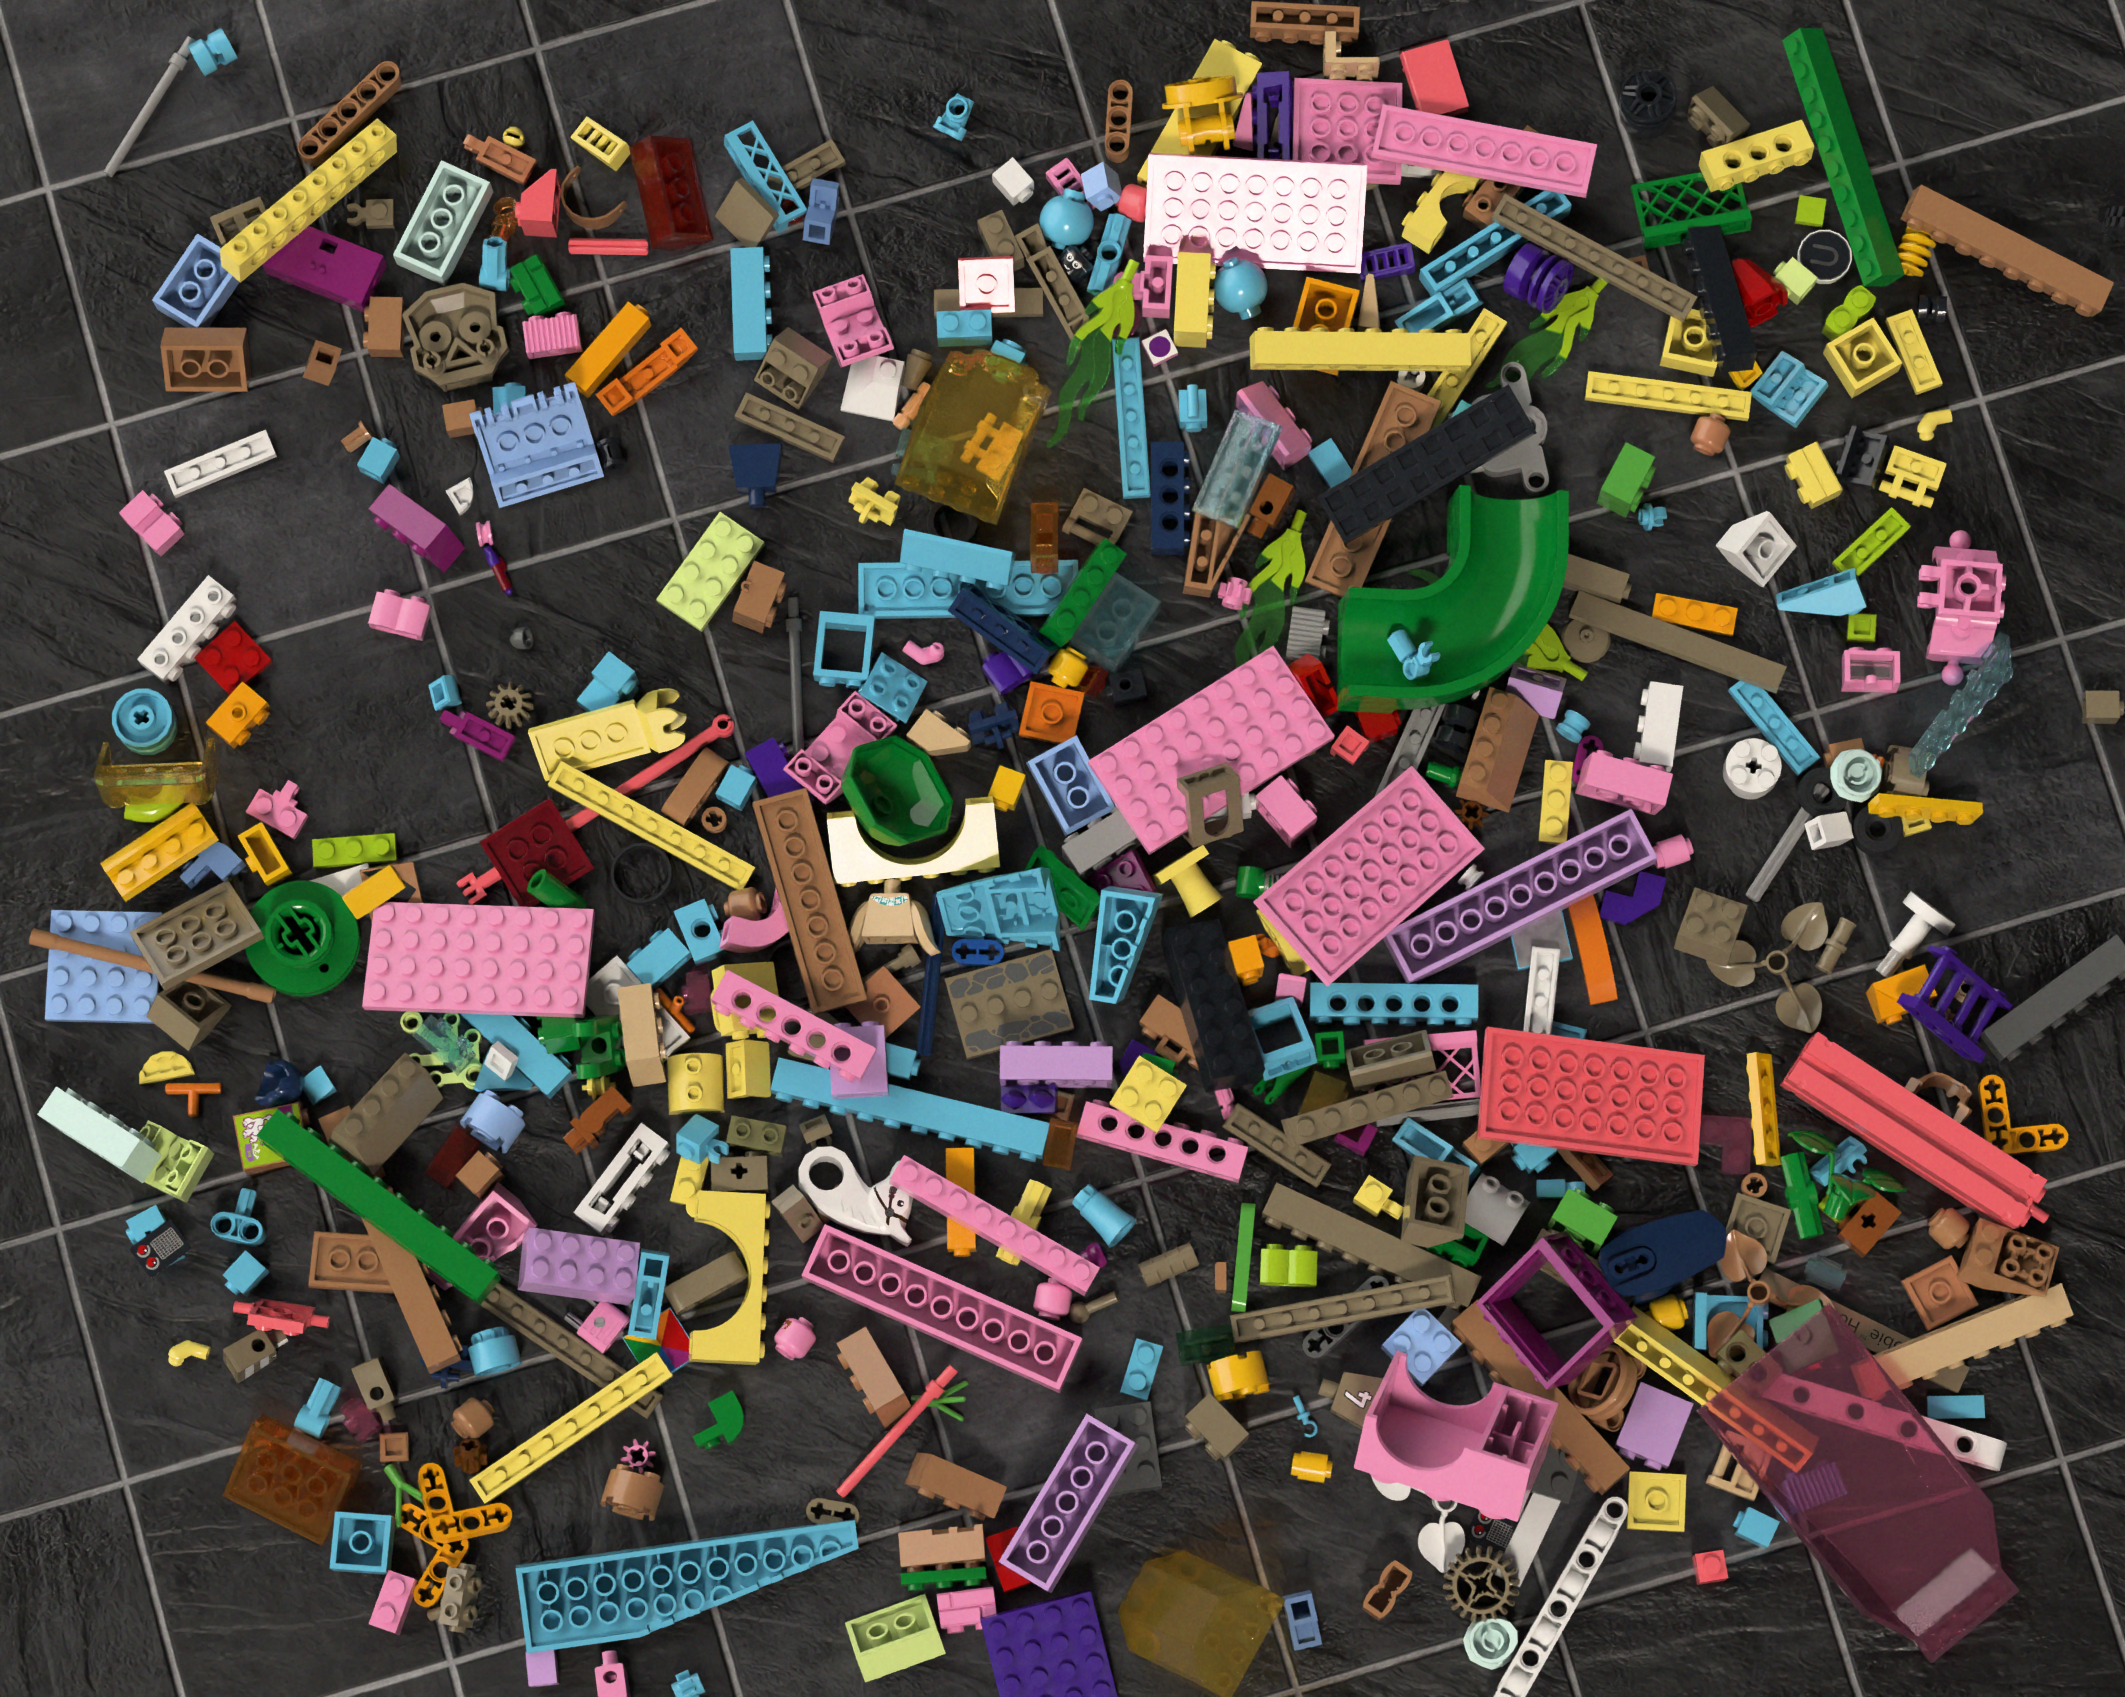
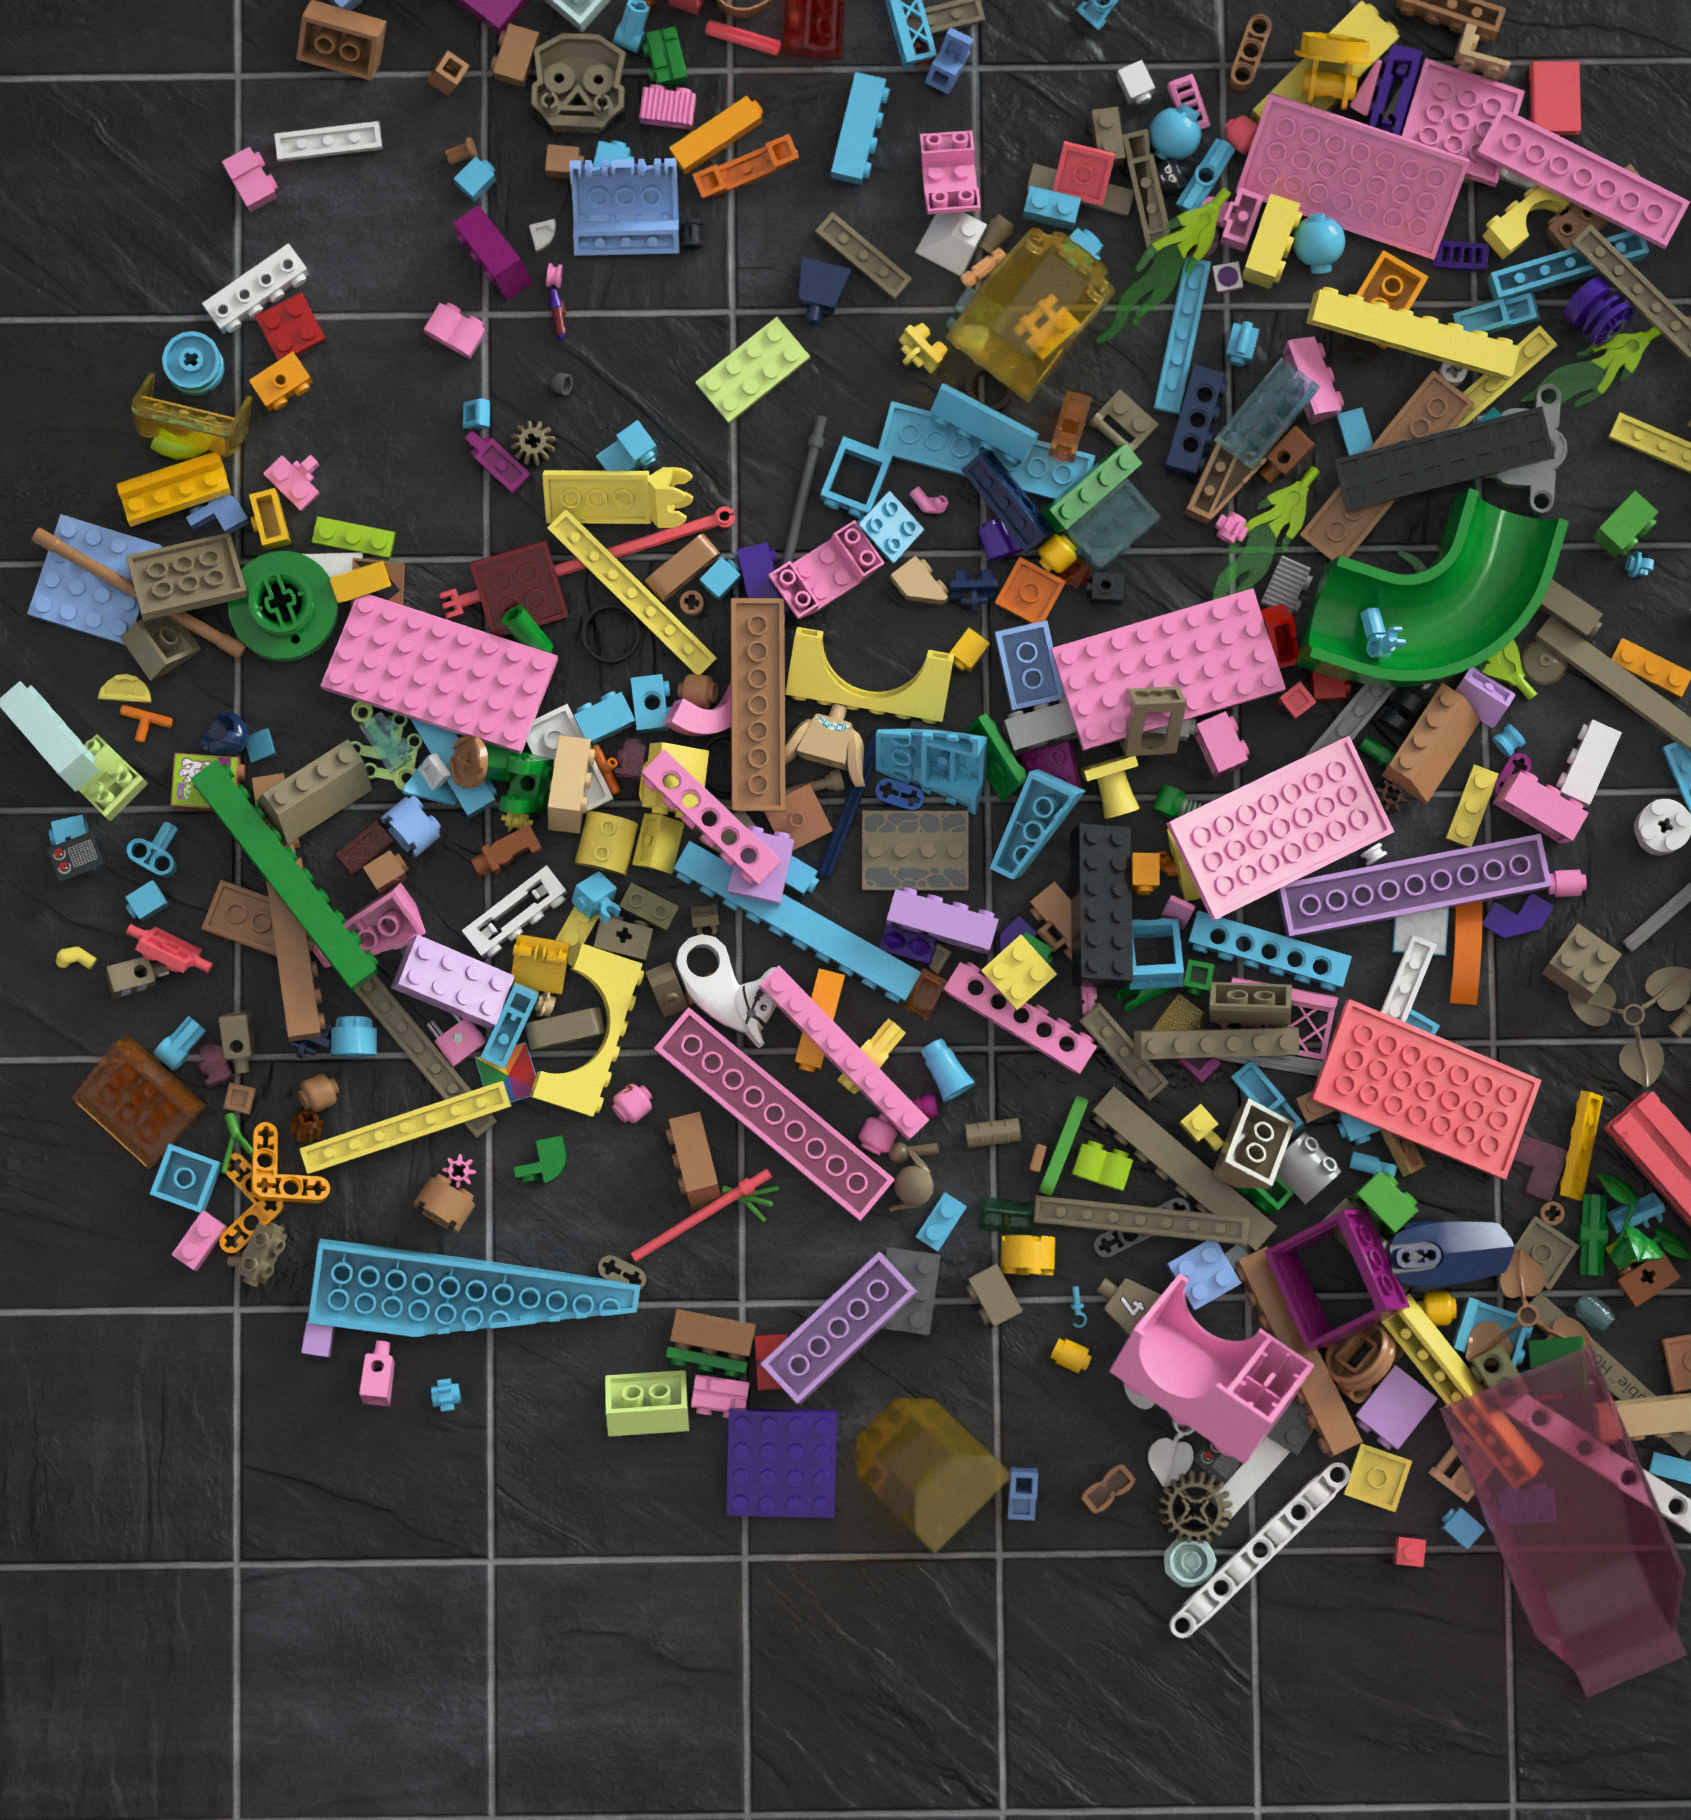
camera: 10 degrees right, 5 degrees up
(534, 1040) = (469, 762): none -> medium nougat tile
(662, 1223) = (540, 963): none -> yellow hinge
(678, 1264) = (544, 1004): none -> tan plate
(746, 214) = (879, 44): dark tan tile -> none
(757, 600) = (789, 408): medium nougat brick -> none
(792, 367) = (882, 200): dark tan slope -> none
(896, 792) = (866, 626): green rock -> none
(955, 1486) = (740, 1280): medium nougat wedge -> none
(1101, 186) = (1216, 110): light blue brick -> none
(1102, 1339) = (913, 1184): none -> dark tan piece
(1369, 308) = (1431, 299): tan slope -> none

